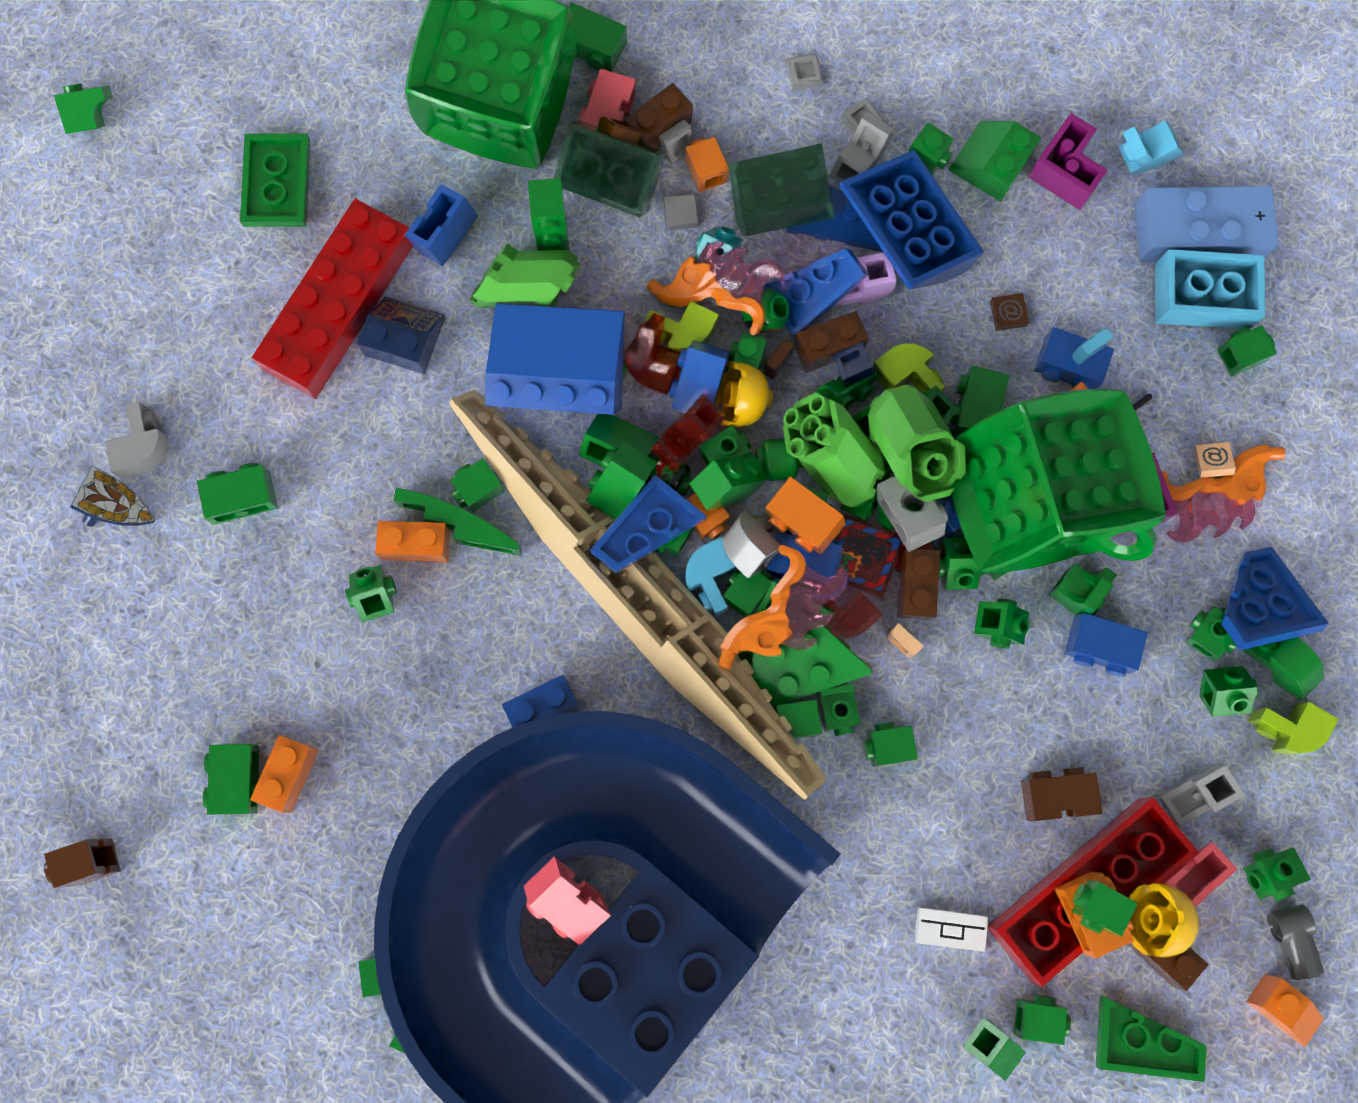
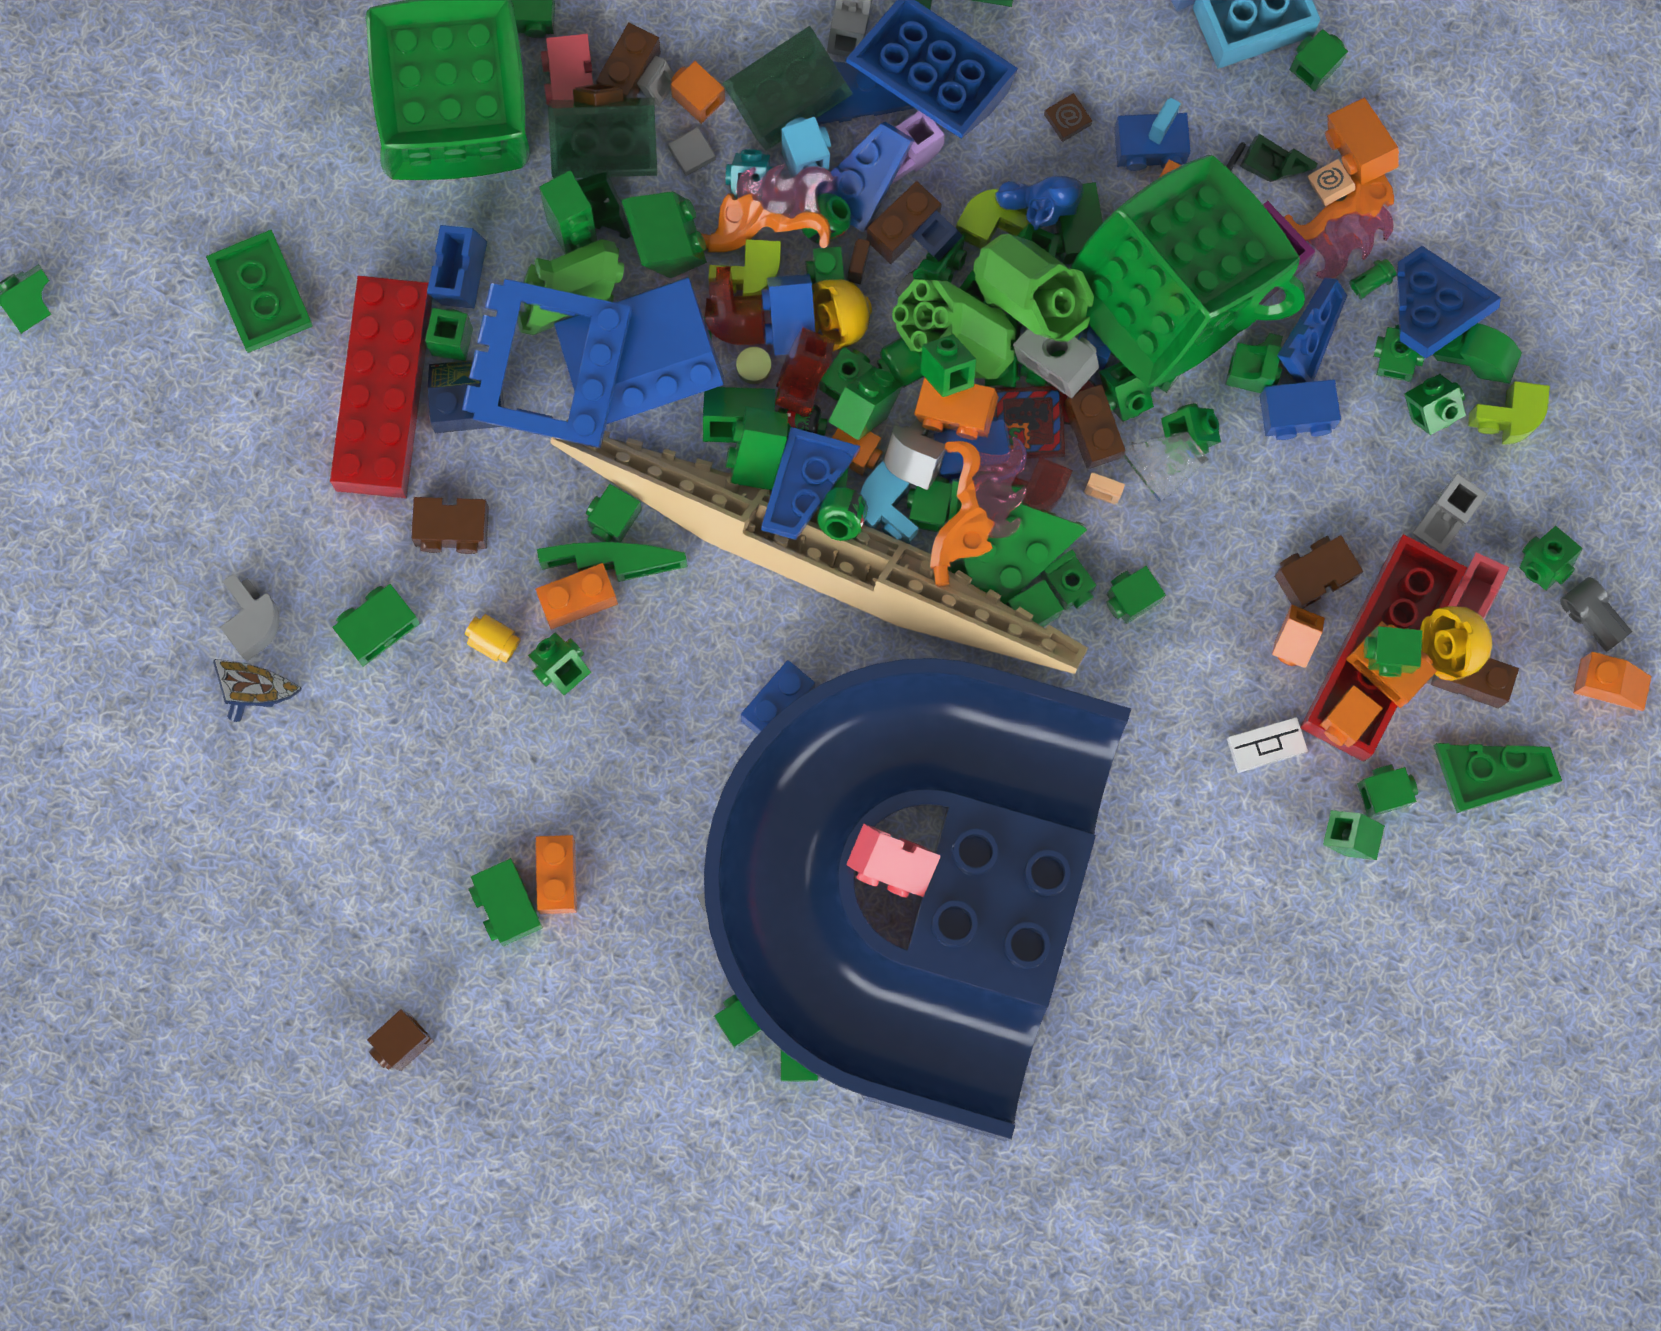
camera: 25 degrees left, 0 degrees up
(328, 546) = (492, 638): none -> yellow brick
(329, 433) = (450, 526): none -> reddish brown brick
(409, 277) = (449, 334): none -> green brick
(510, 356) = (596, 372): none -> blue hinge
(585, 222) = (605, 203): none -> dark green slope
(624, 267) = (665, 233): none -> green slope
(652, 409) = (753, 365): none -> yellowish green tile
(666, 568) = (842, 513): none -> green head
(775, 242) = (805, 145): none -> medium azure brick
(811, 479) = (948, 365): none -> green brick
(957, 371) = (1044, 199): none -> blue head
(967, 641) = (1165, 462): none -> clear wing
(1019, 846) = (1298, 636): none -> brick
(1036, 946) = (1350, 717): none -> orange brick
(1145, 582) = (1311, 335): none -> blue wing
(1170, 421) = (1273, 162): none -> dark green slope
(1227, 556) = (1373, 278): none -> green pin
(1257, 435) = (1362, 141): none -> orange brick

